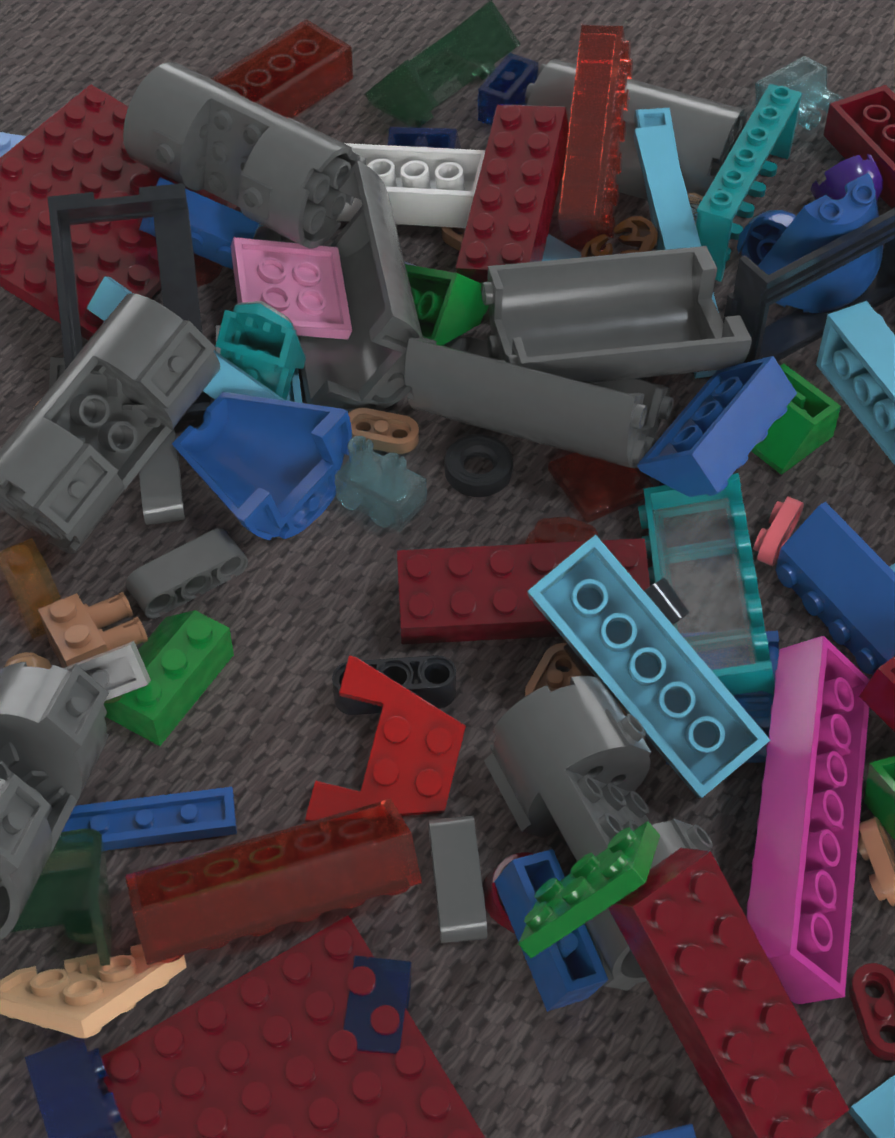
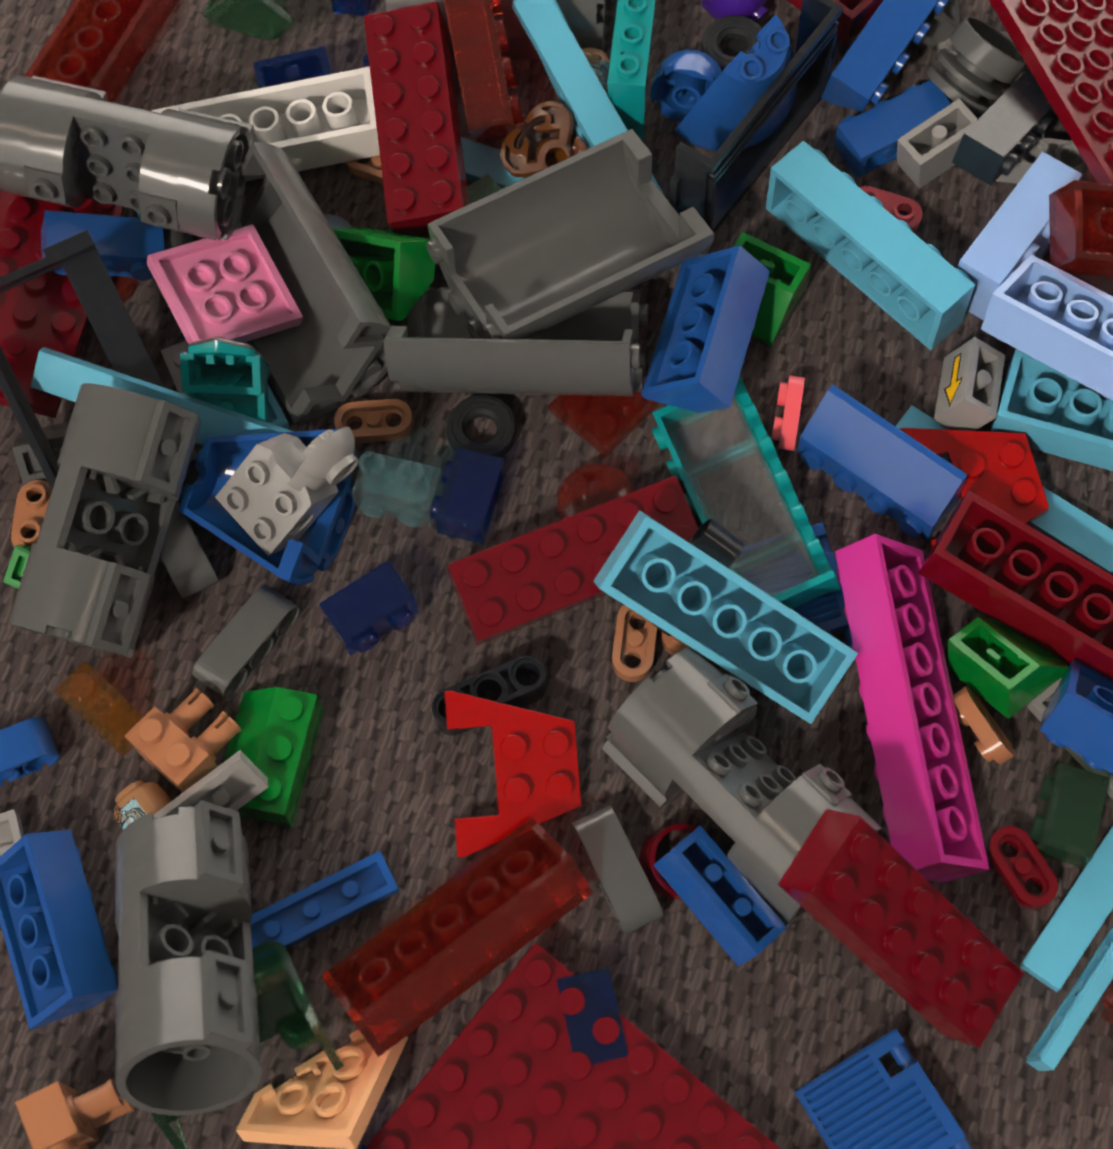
camera: 15 degrees left, 15 degrees up
(277, 440) = (287, 485): none -> light grey brick
(311, 576) = (370, 608): none -> clear blue brick
(444, 511) = (468, 495): none -> clear blue brick
(589, 888) = (758, 871): green plate -> none

